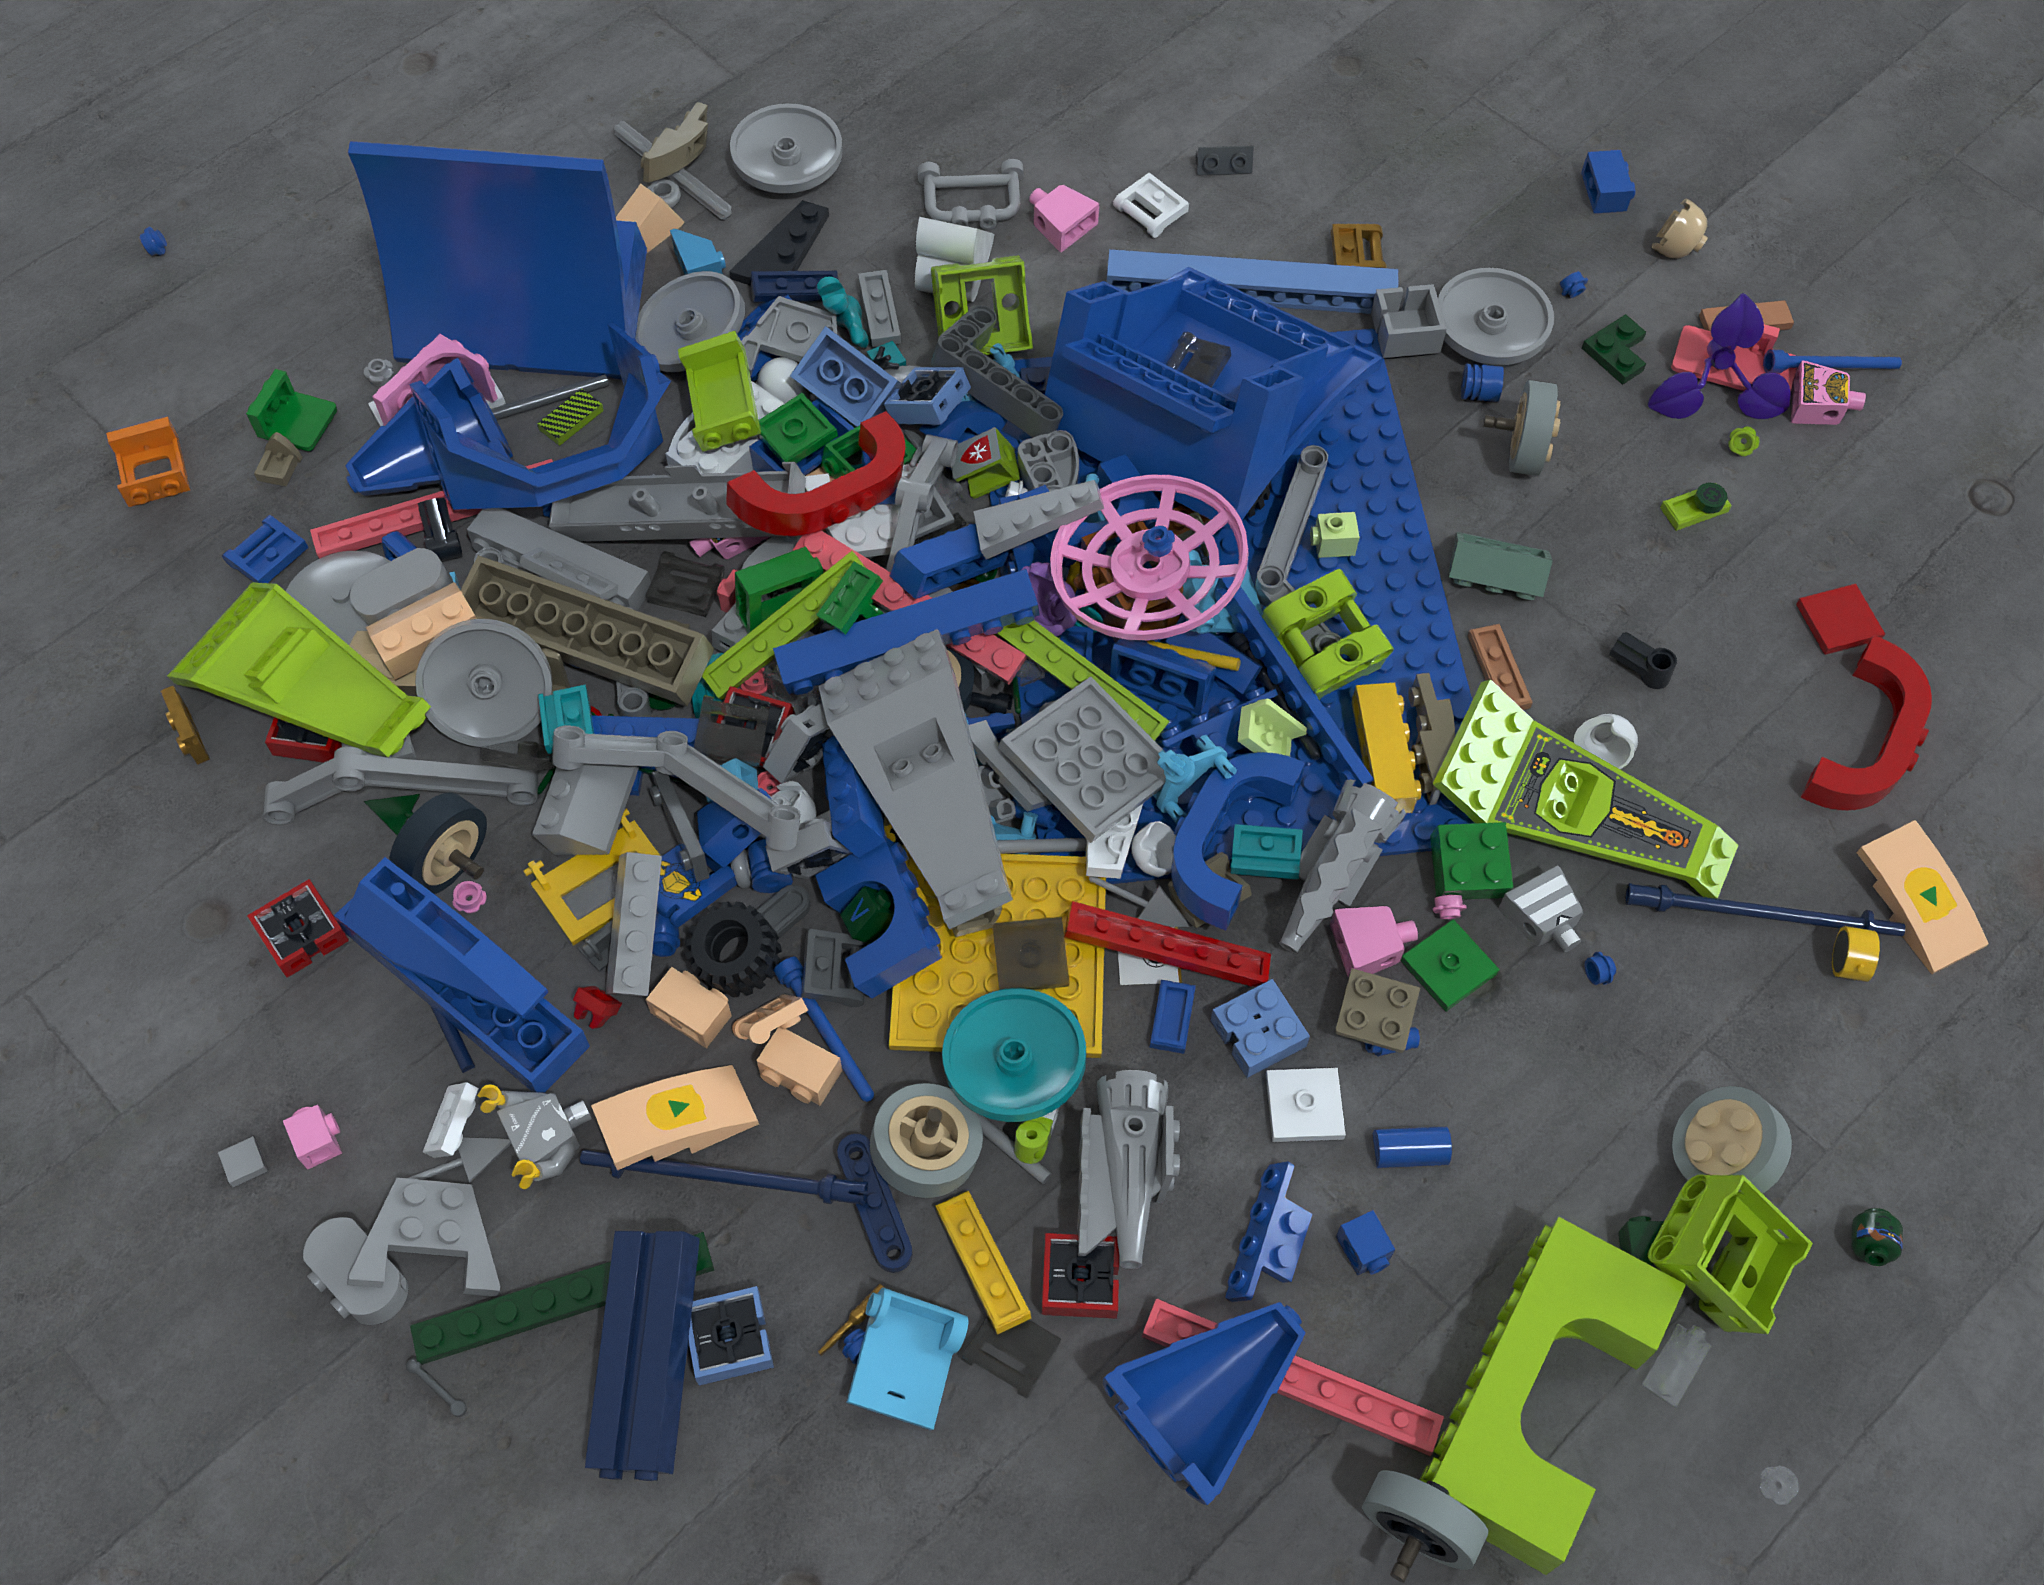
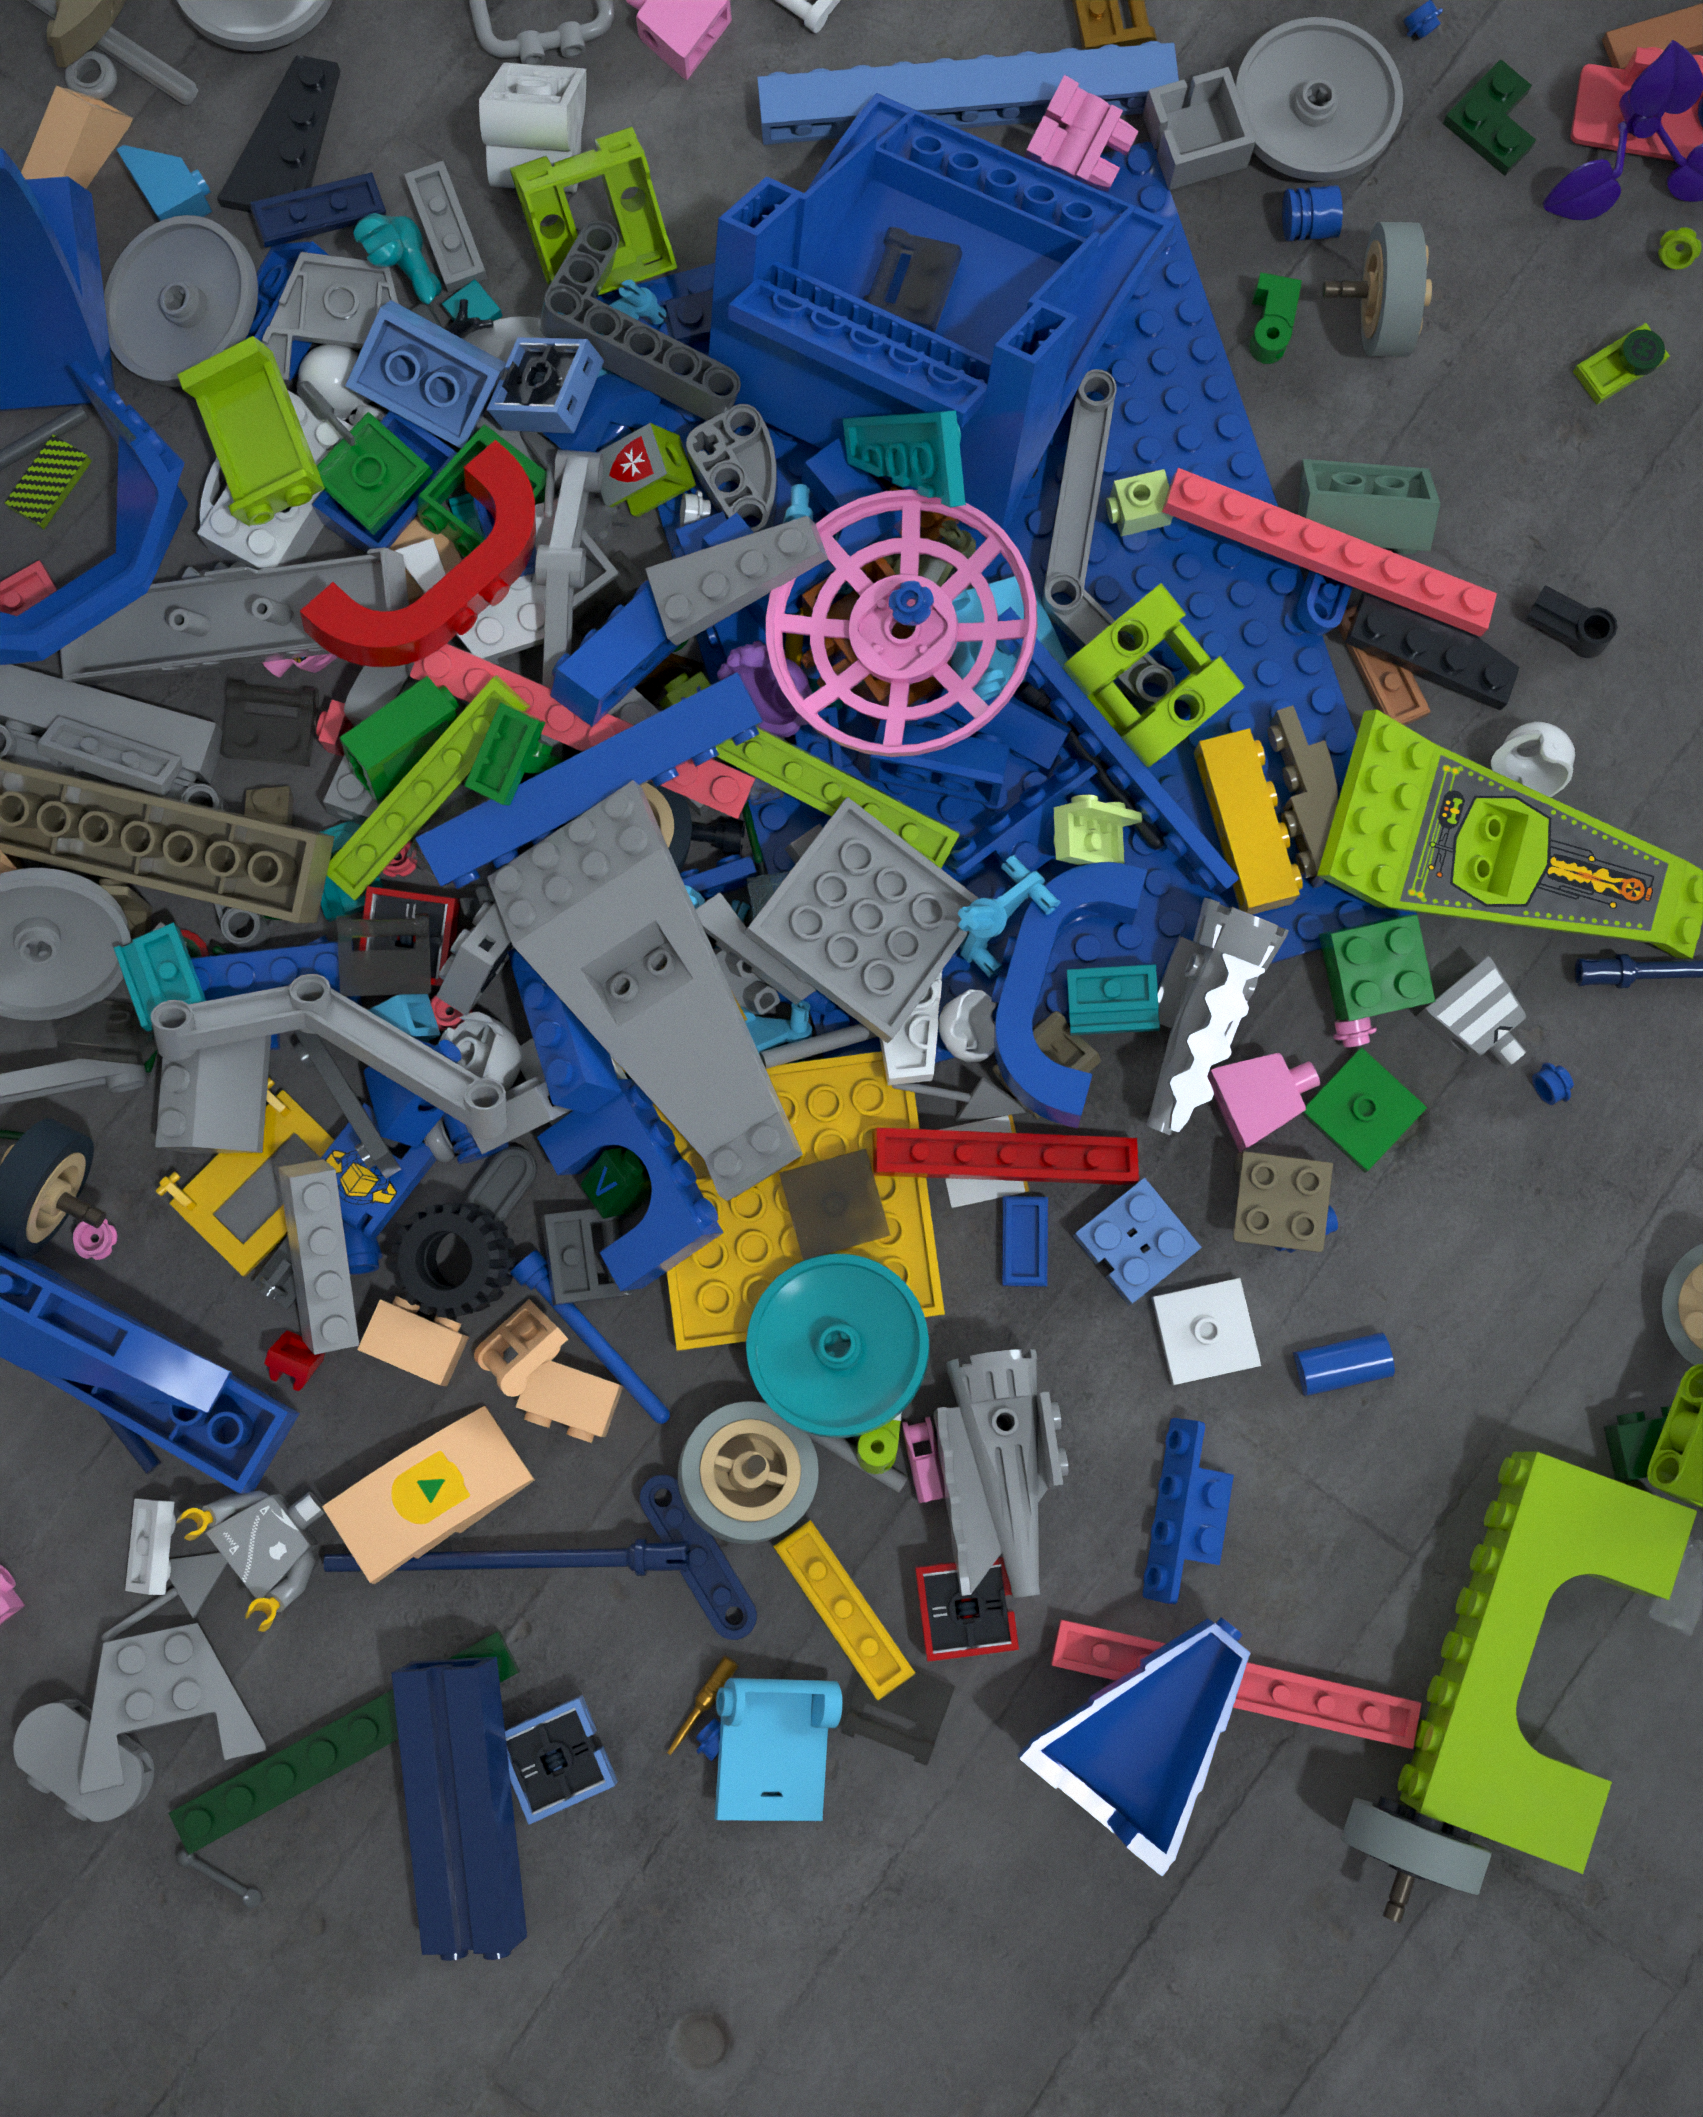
camera: 10 degrees left, 20 degrees up
(771, 389) = (323, 409): none -> dark grey piece
(1066, 1165) = (925, 1468): none -> bright pink bar
(1174, 448) = (910, 449): none -> teal wing
(1213, 659) = (996, 728): yellow bar -> none
(1327, 306) = (1075, 134): none -> bright pink hips
(1366, 1244) = (1304, 1504): blue brick -> none
(1444, 449) = (1279, 301): none -> green leg
(1462, 614) = (1322, 603): none -> blue plate
(1469, 583) = (1329, 552): none -> coral plate
(1531, 653) = (1432, 650): none -> black wing

